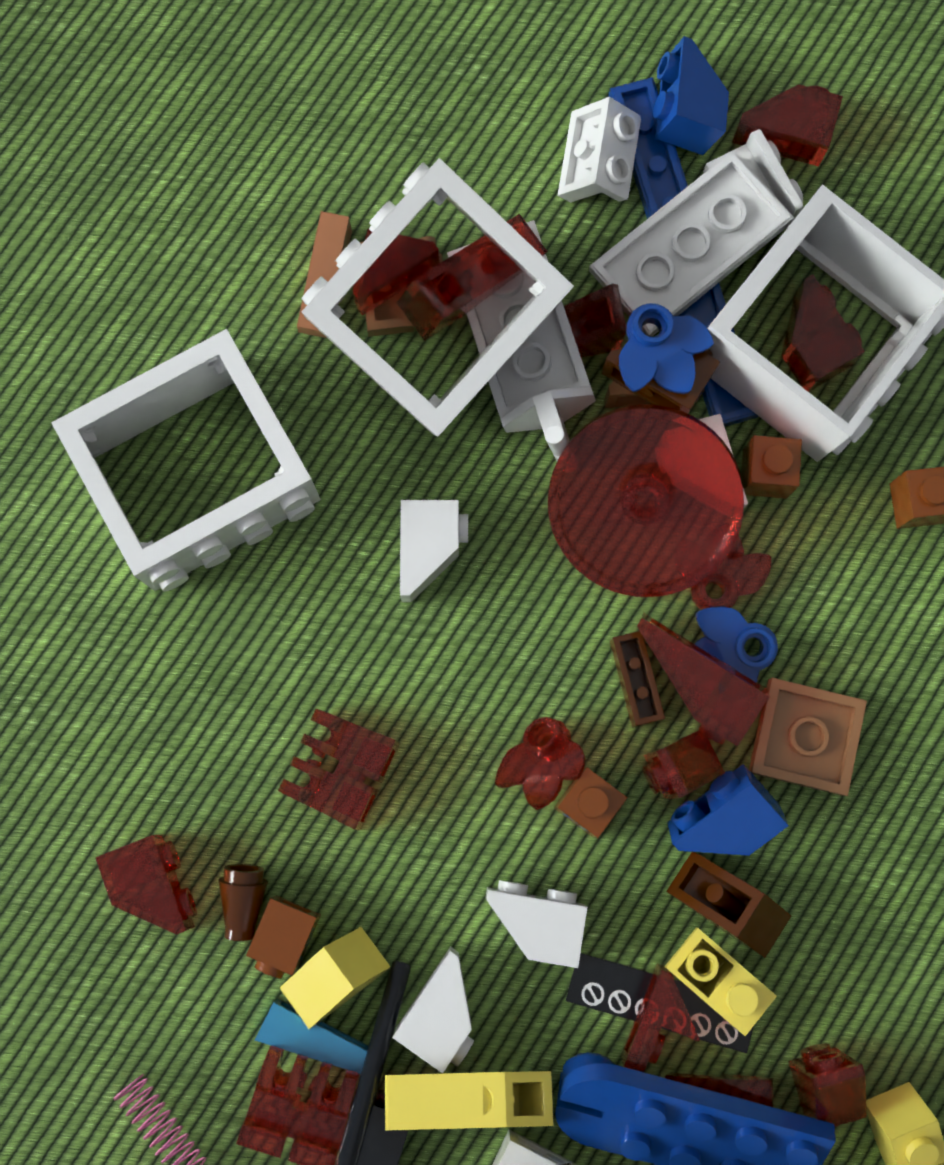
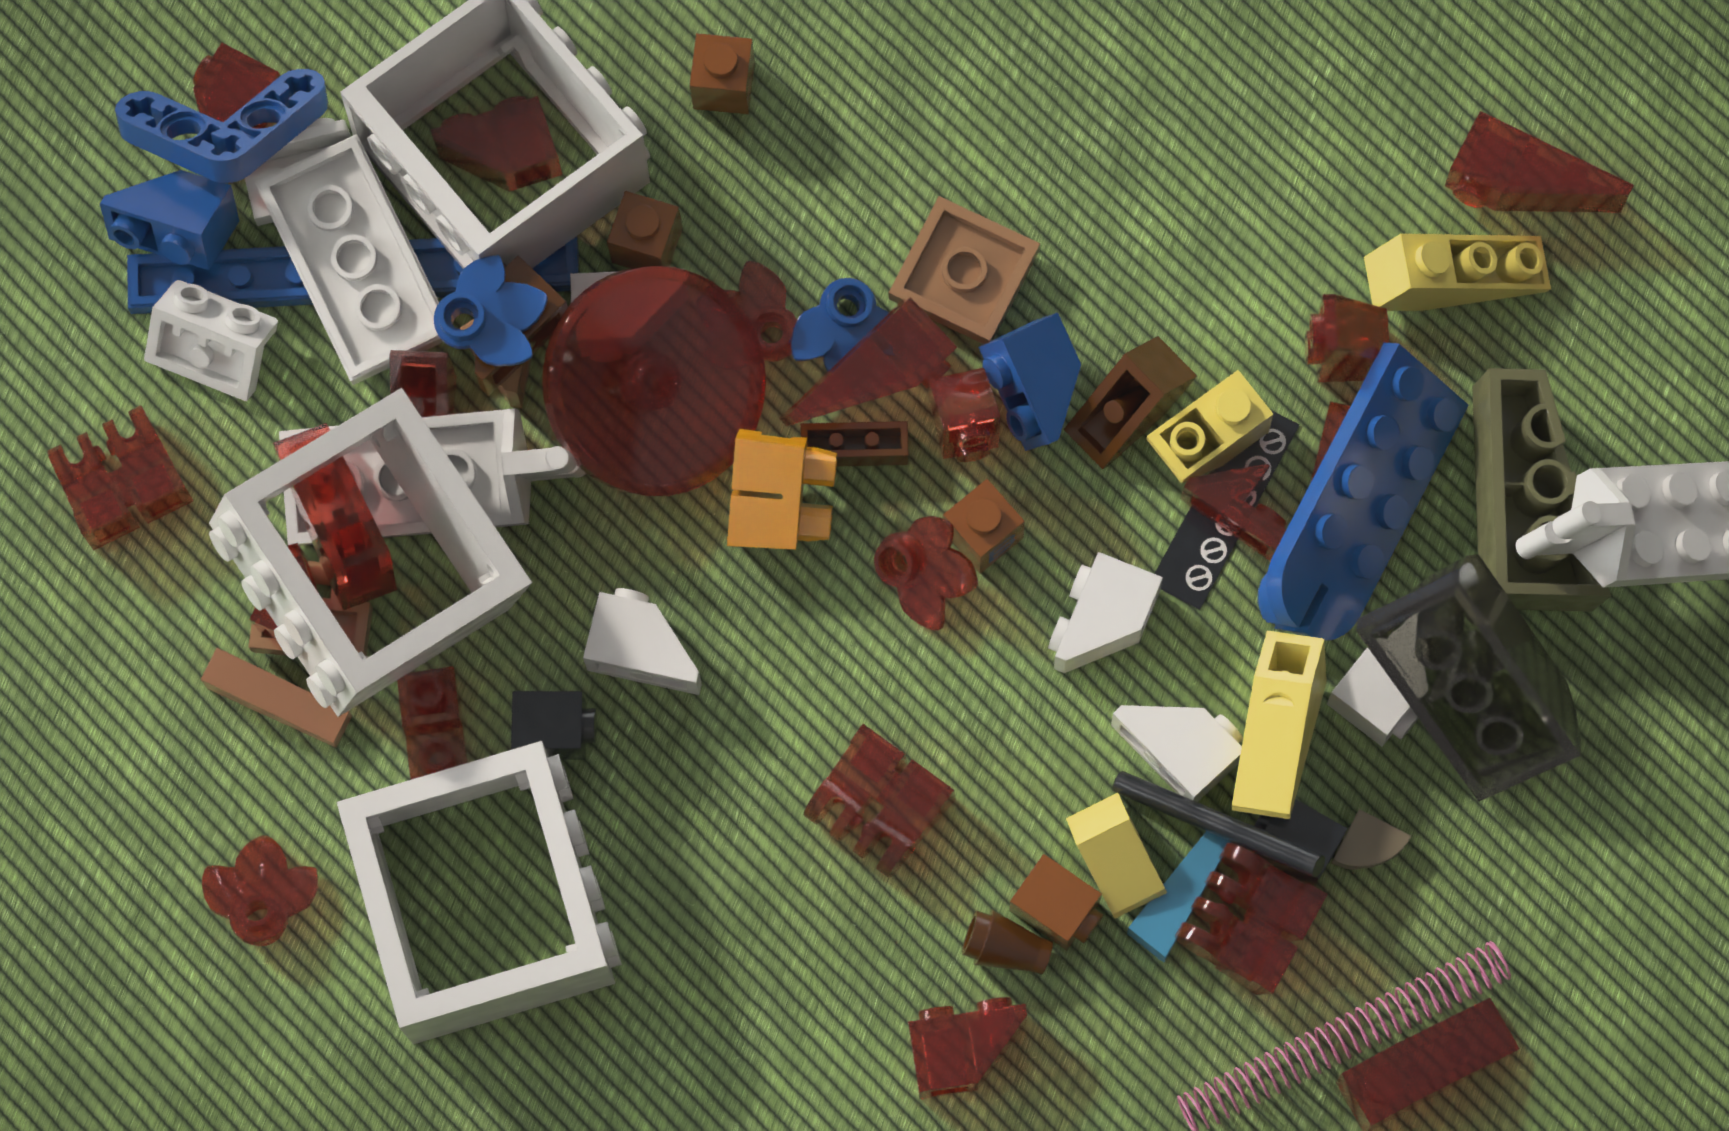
camera: 70 degrees left, 5 degrees down
(176, 300) = (259, 883): none -> clear red plate
(324, 403) = (432, 721): none -> clear red slope
(345, 489) = (556, 719): none -> black brick
(453, 116) = (104, 499): none -> clear red legs
(576, 618) = (769, 491): none -> light orange hips
(805, 158) = (227, 148): none -> blue beam

